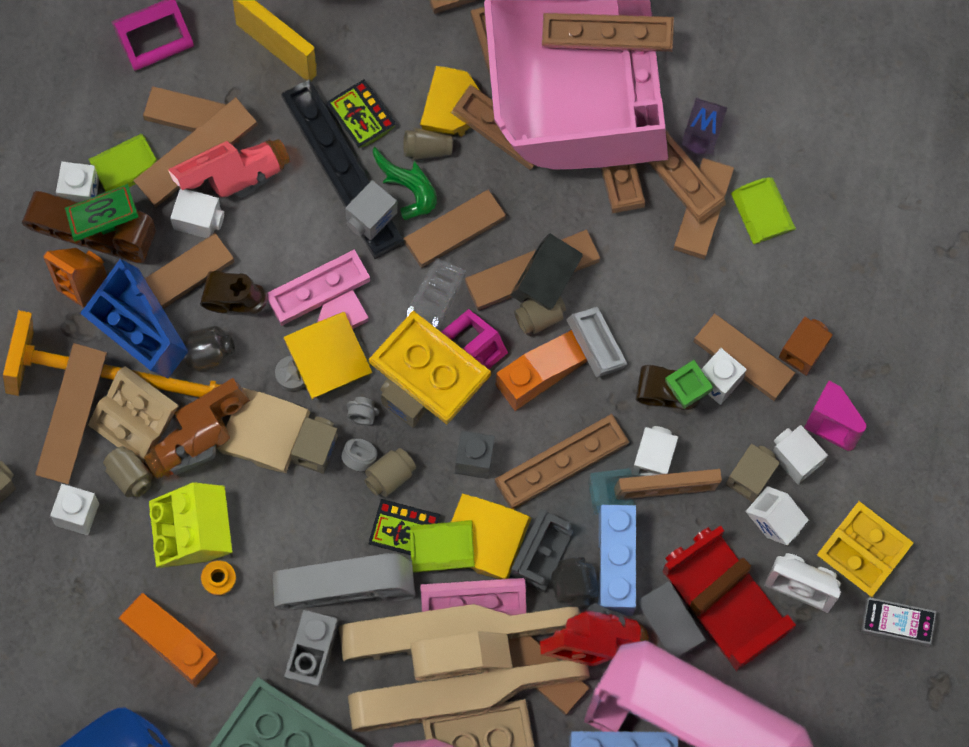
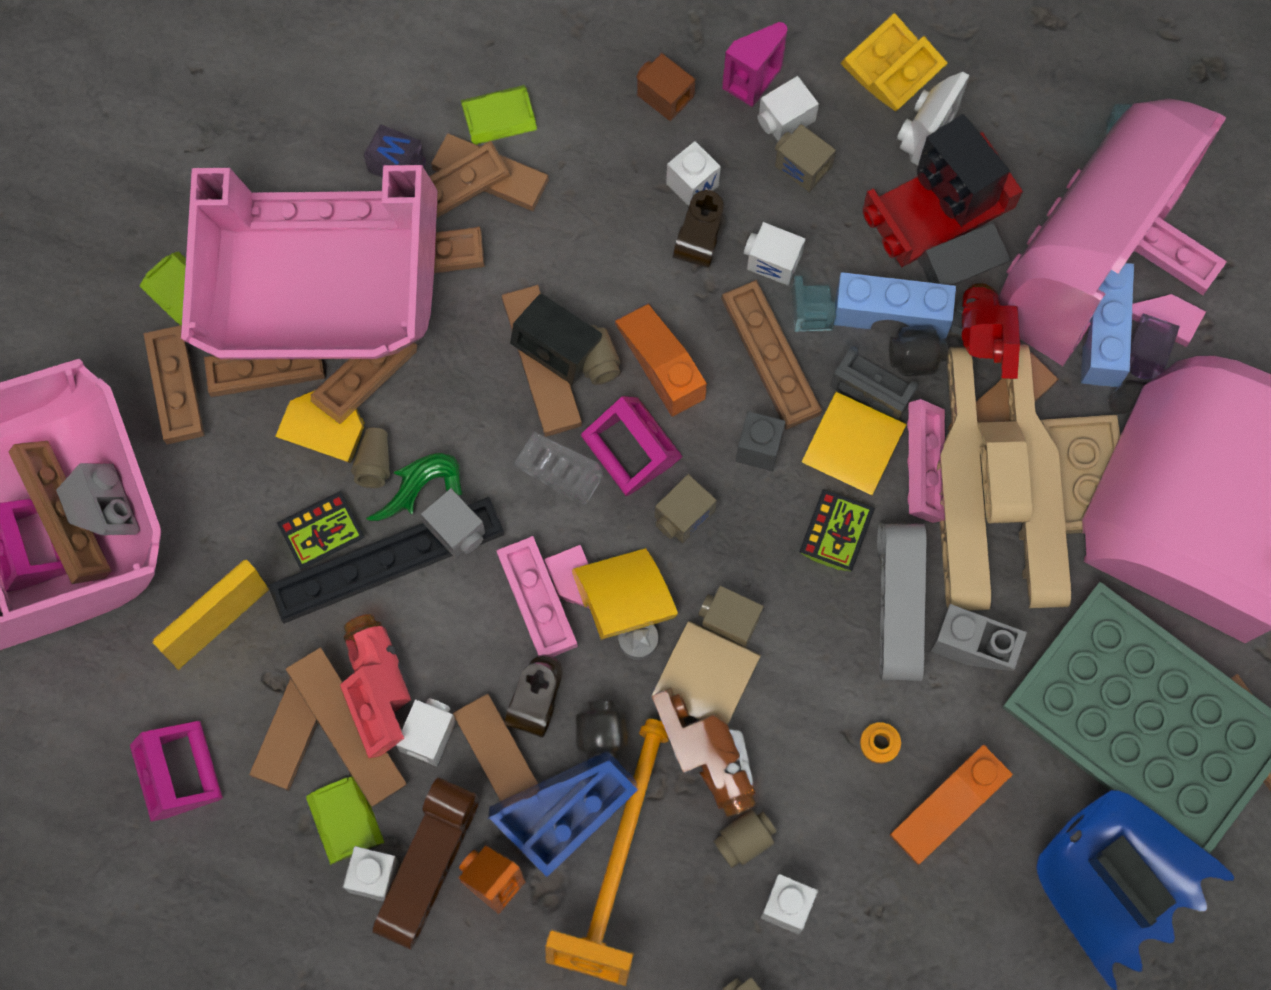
camera: 80 degrees left, 0 degrees up
(71, 413) = (669, 899): medium nougat tile -> none
(101, 213) = (424, 837): green piece -> none
(133, 413) = (676, 825): tan slope -> none
(190, 525) = (818, 769): neon yellow slope -> none
(359, 454) = (746, 570): light grey tile -> none
(362, 411) = (693, 562): light grey plate -> none
(389, 472) = (771, 537): dark tan brick -> none
(430, 367) = (658, 473): yellow tile -> none
(442, 546) = (862, 487): lime piece -> none
(454, 228) = (480, 439): medium nougat tile -> none
(597, 342) = (637, 299): light grey tile -> none
(608, 32) = (266, 239): medium nougat tile -> none
(667, 484) = (813, 243): medium nougat tile -> none
(689, 384) = (709, 198): bright green plate -> none
(720, 587) = (932, 203): reddish brown tile -> none
(750, 606) = (961, 170): none -> black brick
(762, 368) = (649, 168): medium nougat tile -> none
(777, 515) = (858, 136): white brick -> none
(898, 621) = (974, 42): tile -> none

